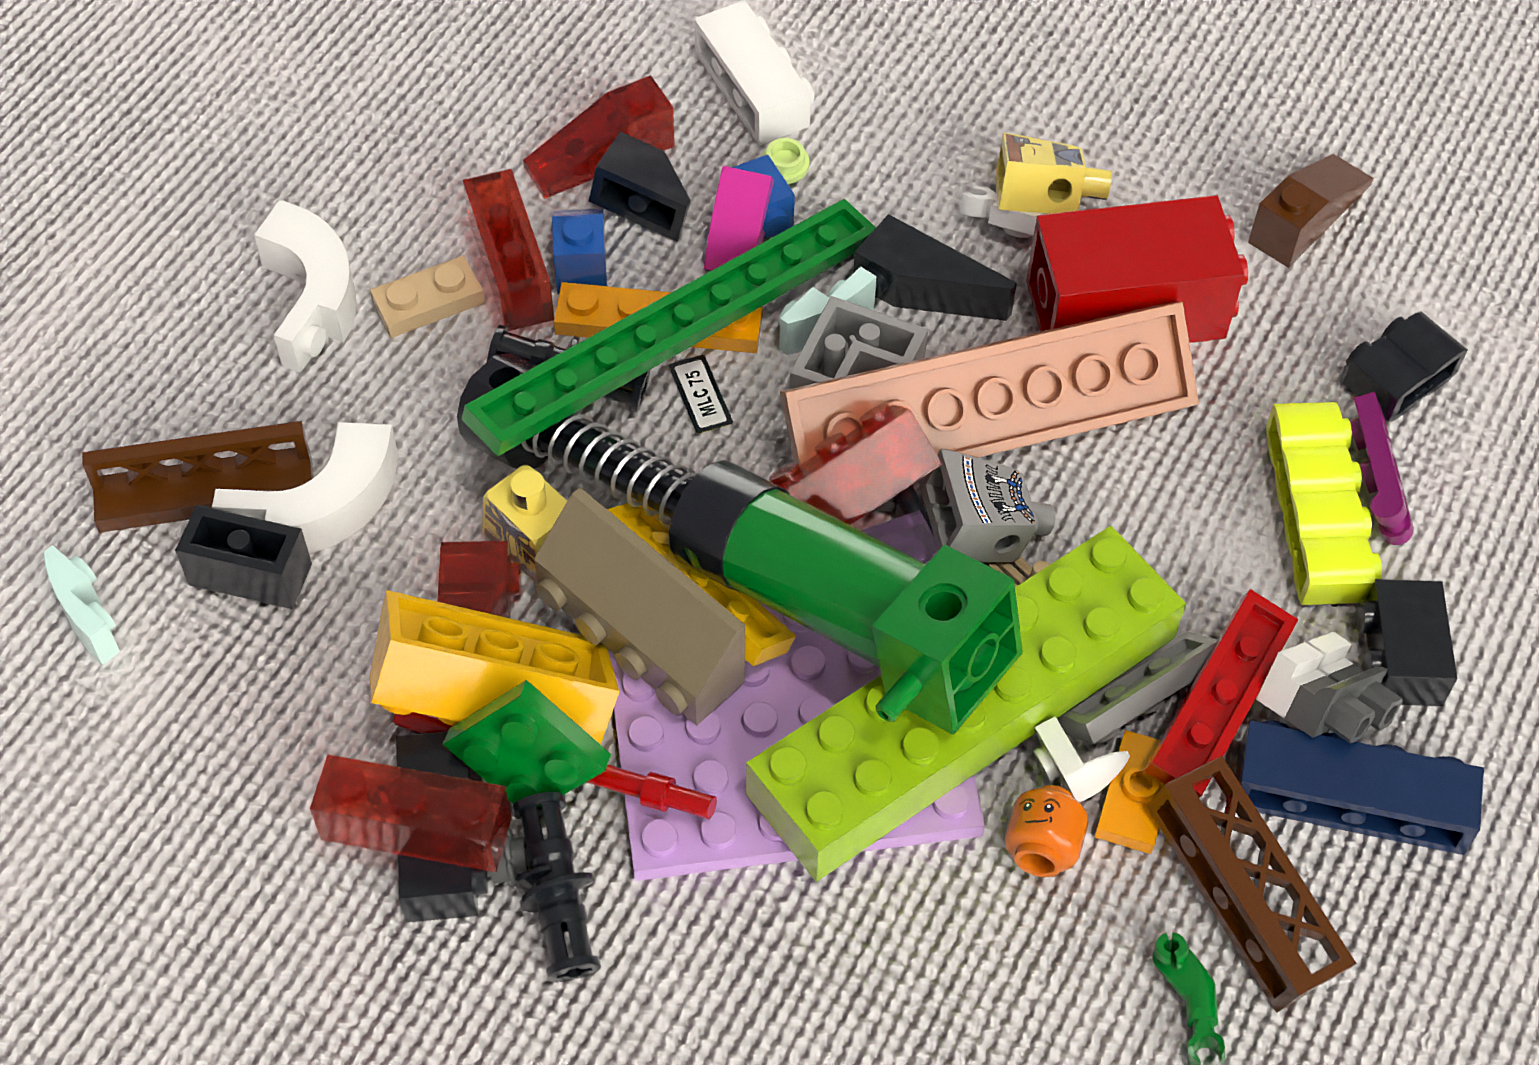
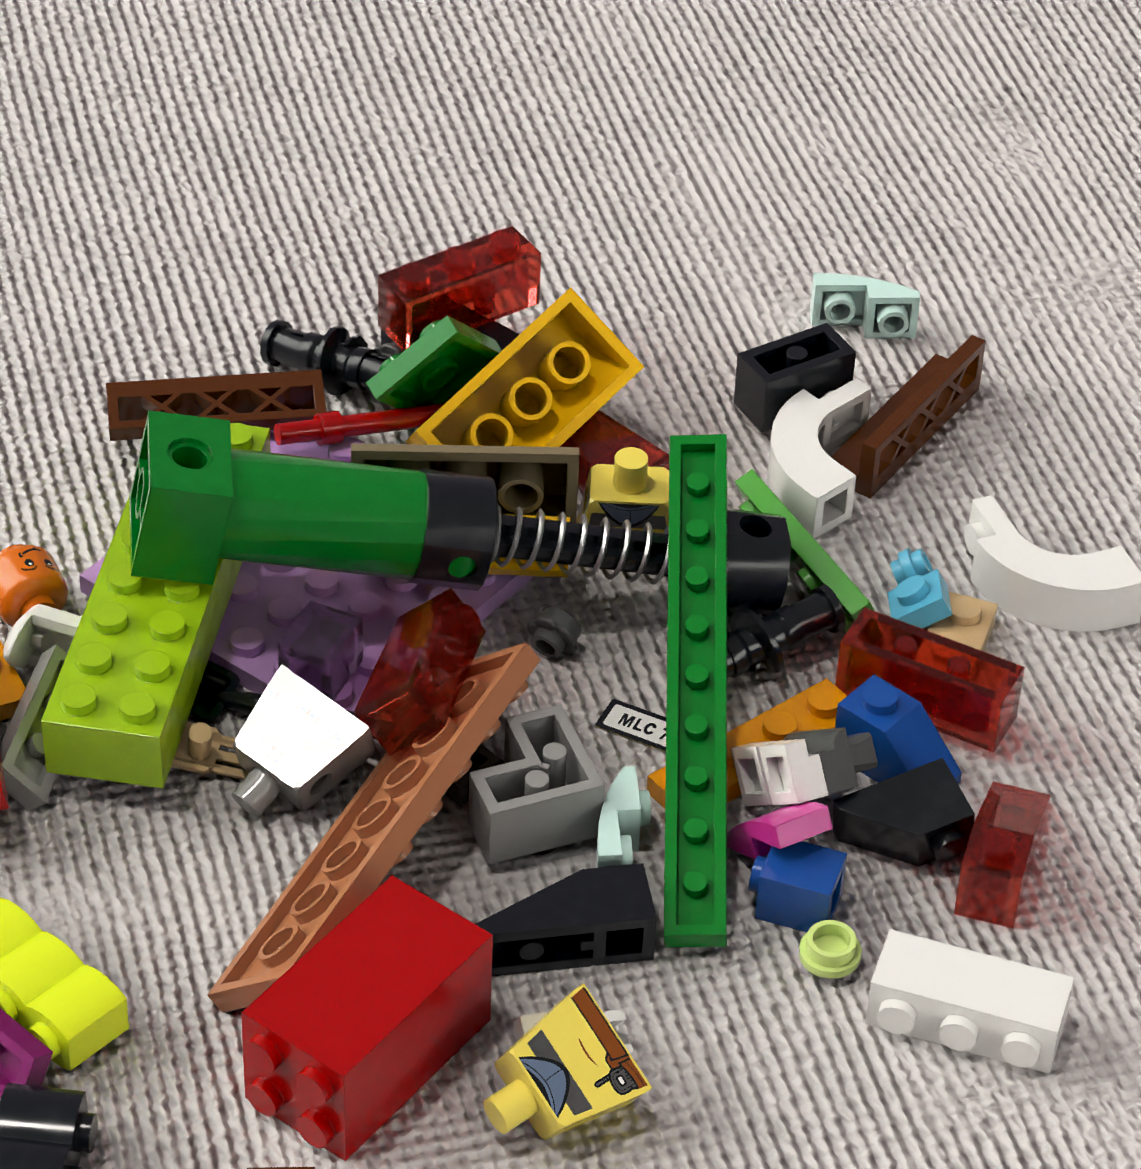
camera: 135 degrees right, 15 degrees down
(419, 323) = (921, 591): none -> medium azure plate
(437, 431) = (814, 563): none -> bright green plate
(670, 218) = (802, 766): none -> white hips
(702, 928) = (241, 398): none -> reddish brown fence

